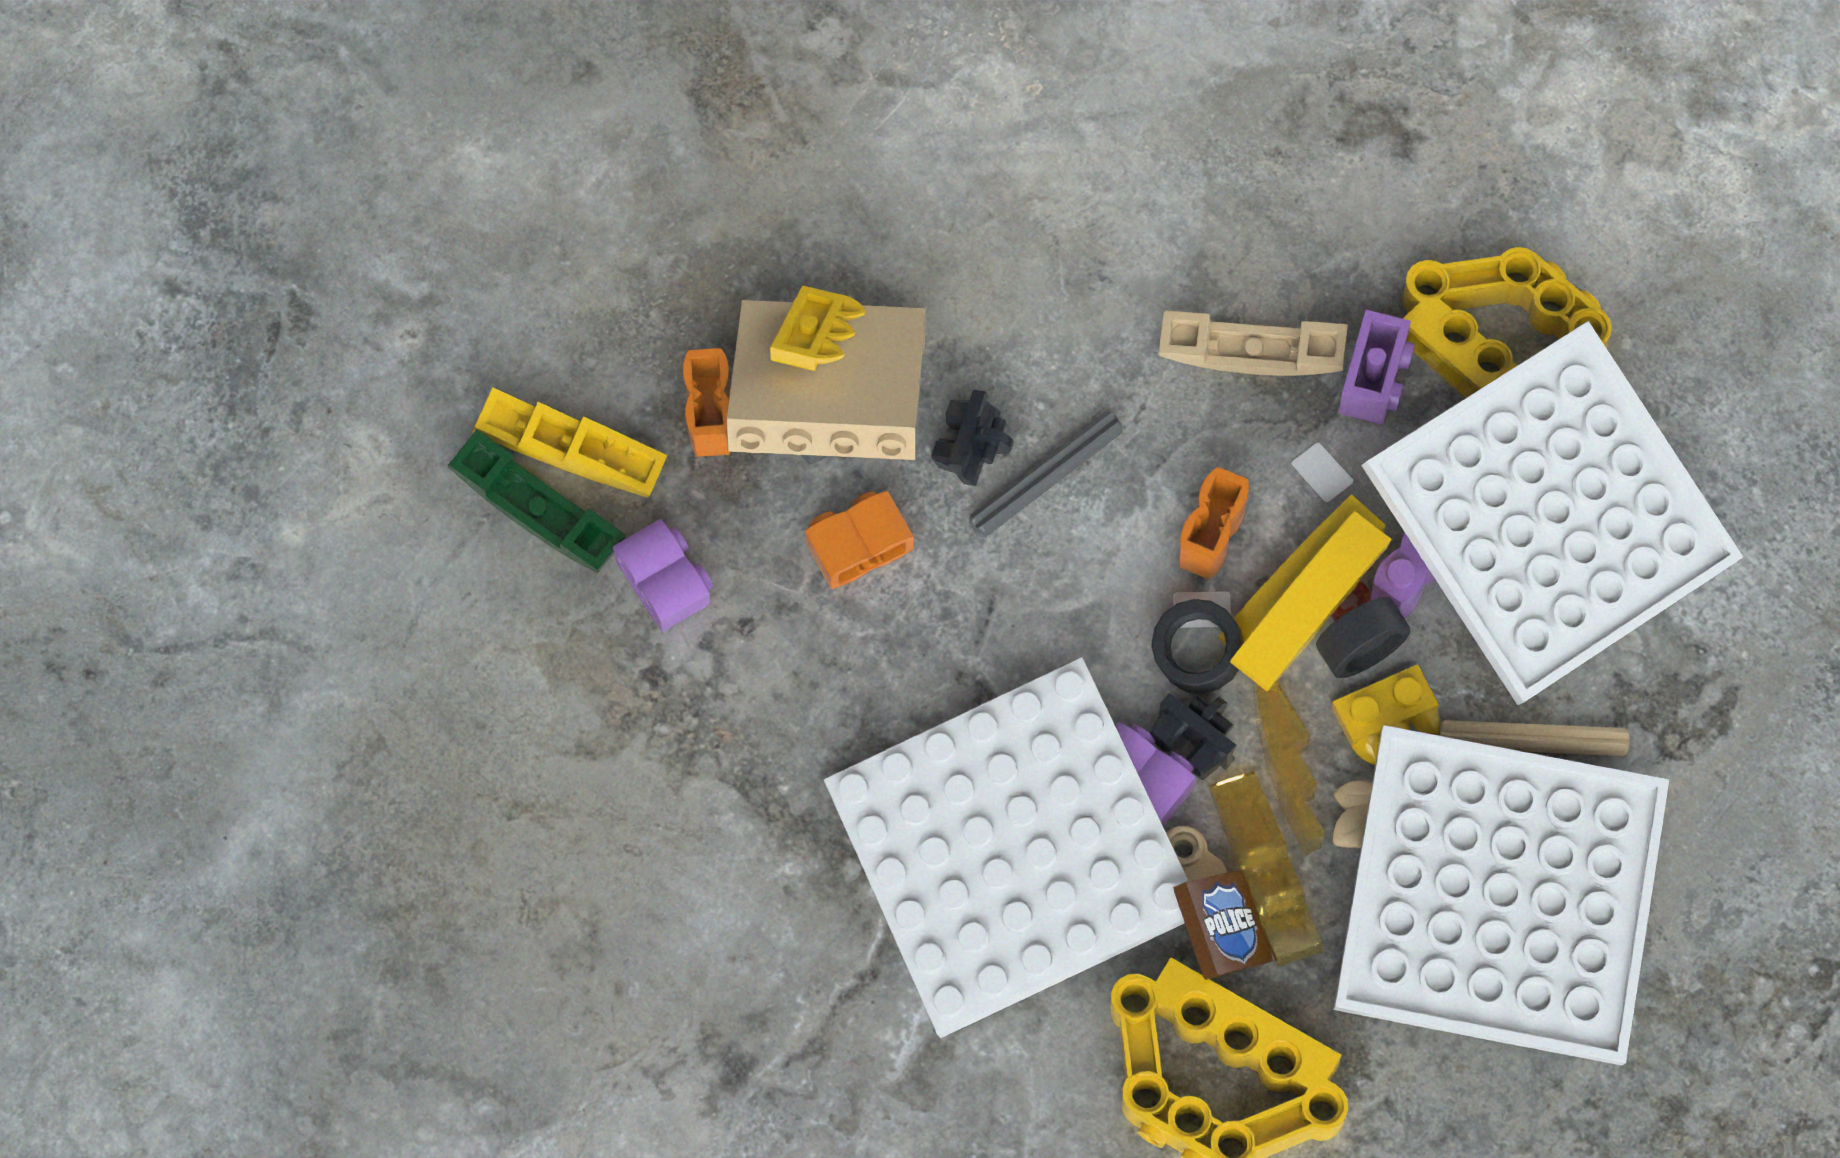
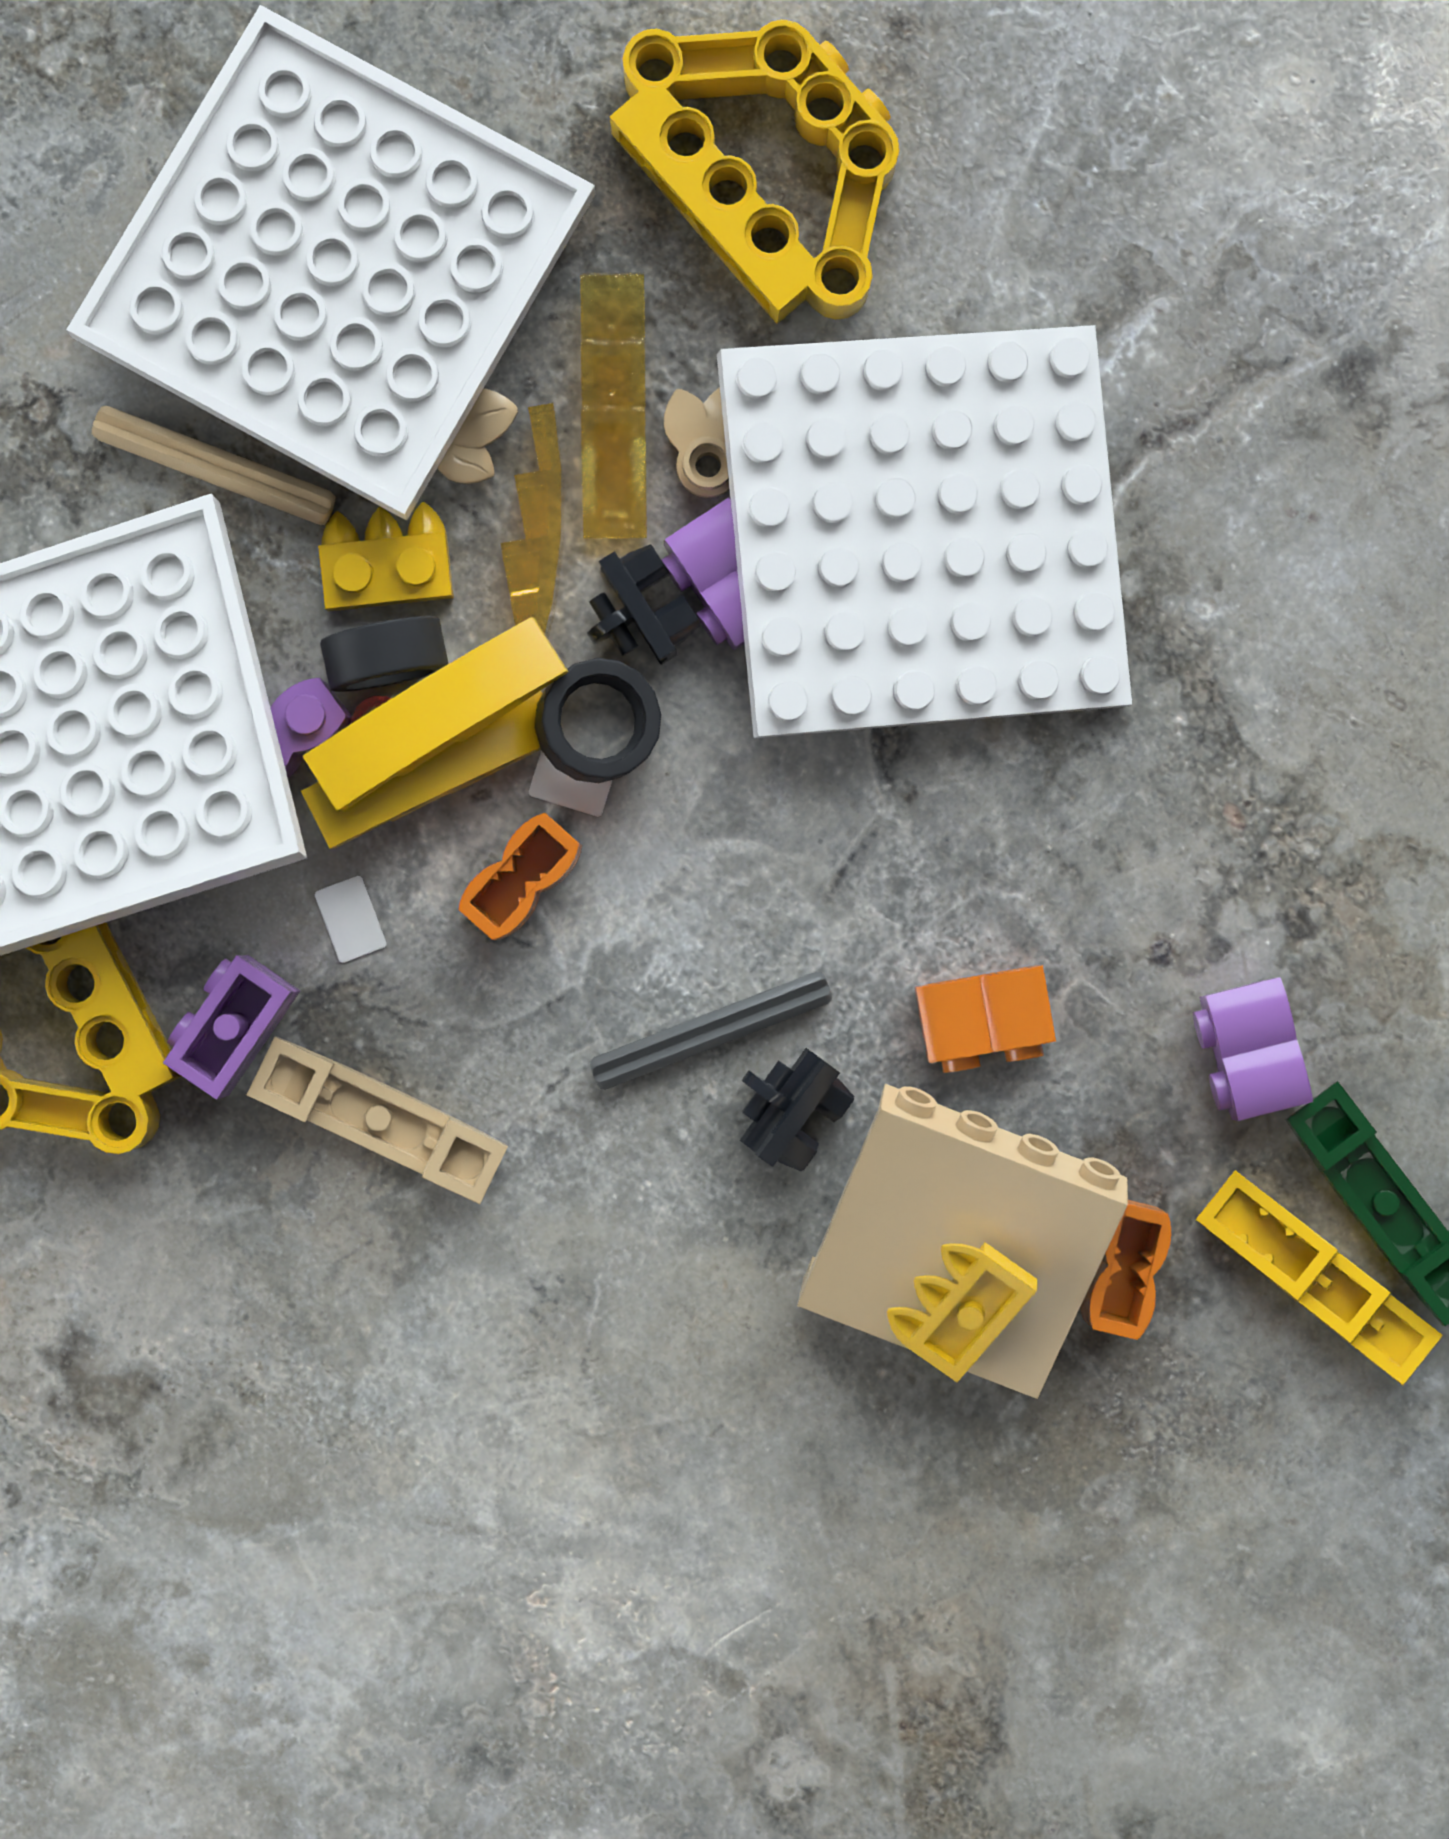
camera: 165 degrees left, 20 degrees up
(1223, 924) = (698, 330): tile -> none

